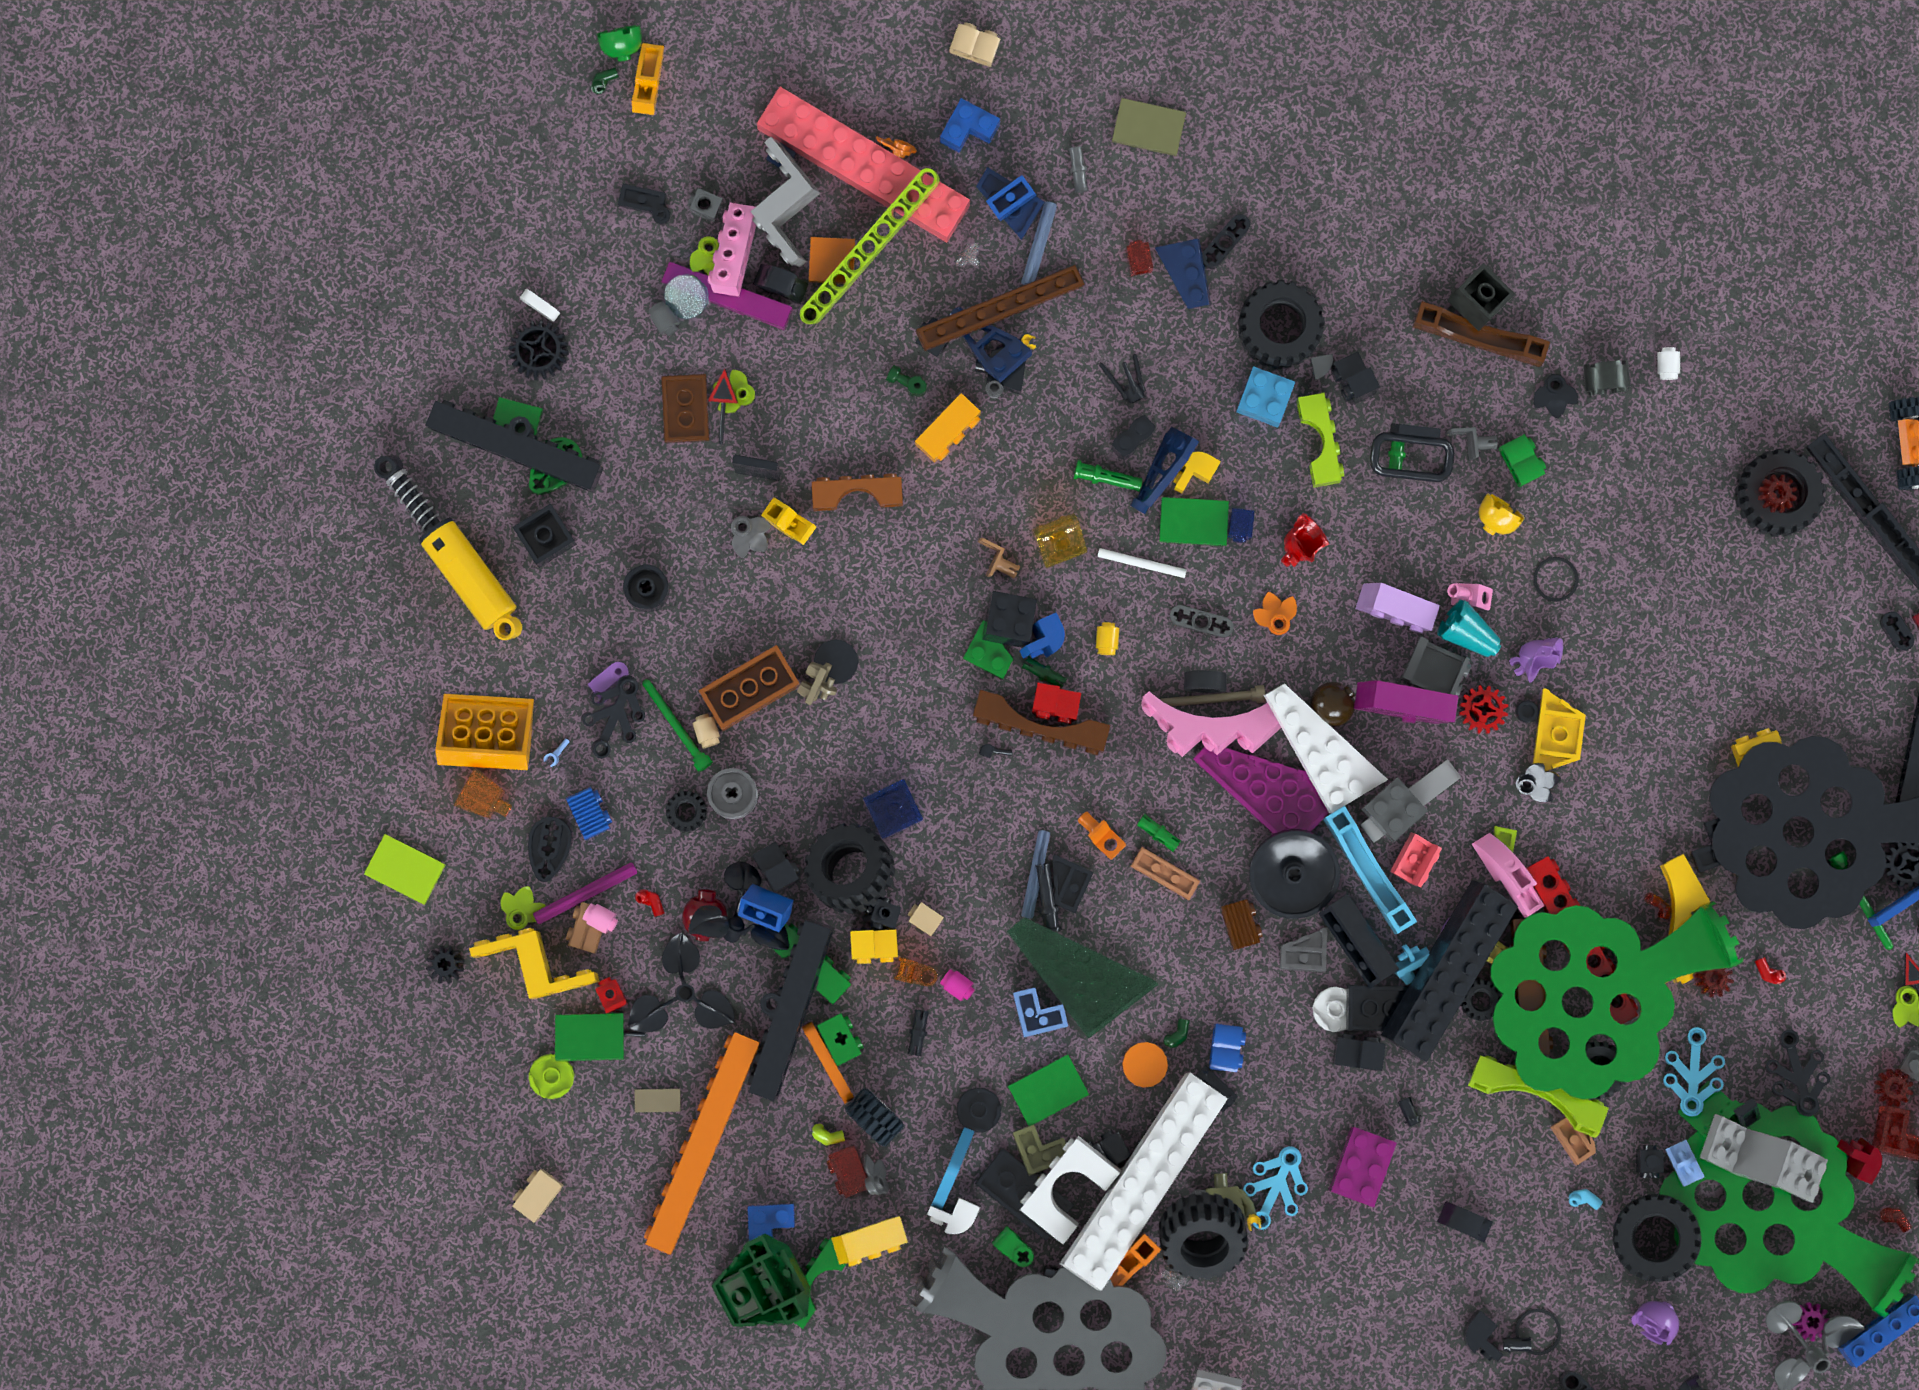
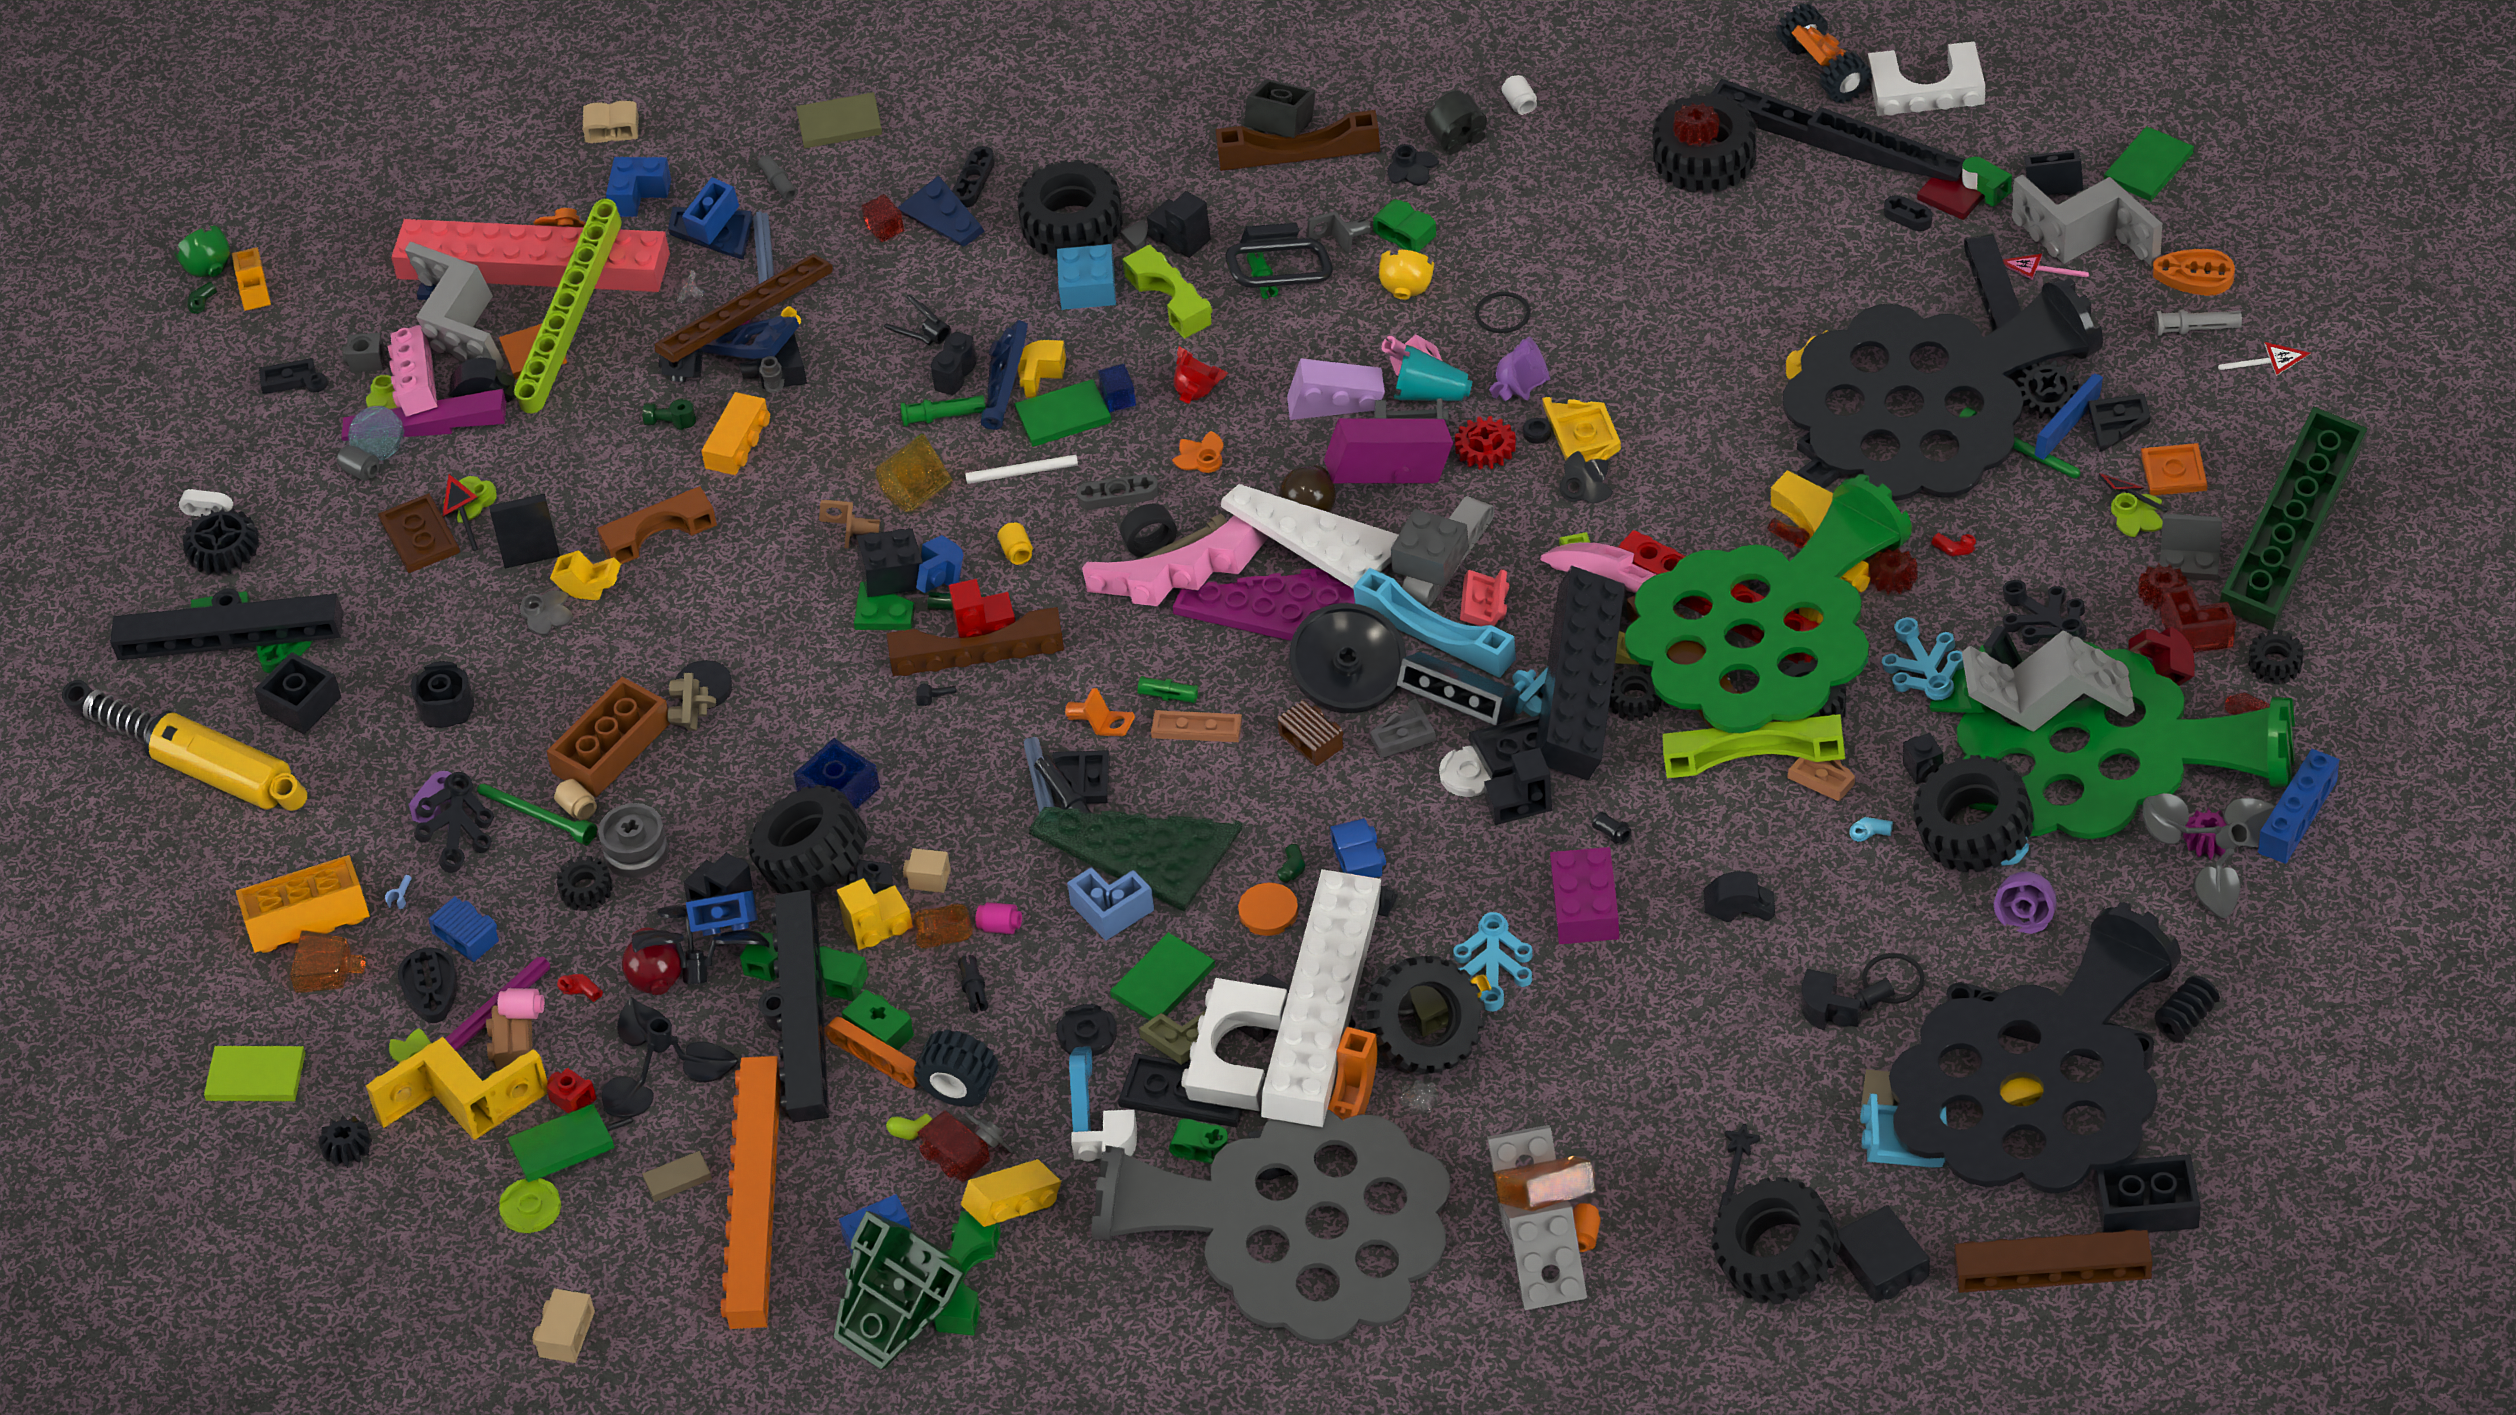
camera: 15 degrees left, 35 degrees down
(1684, 1163) = (1963, 737): light blue hips -> none

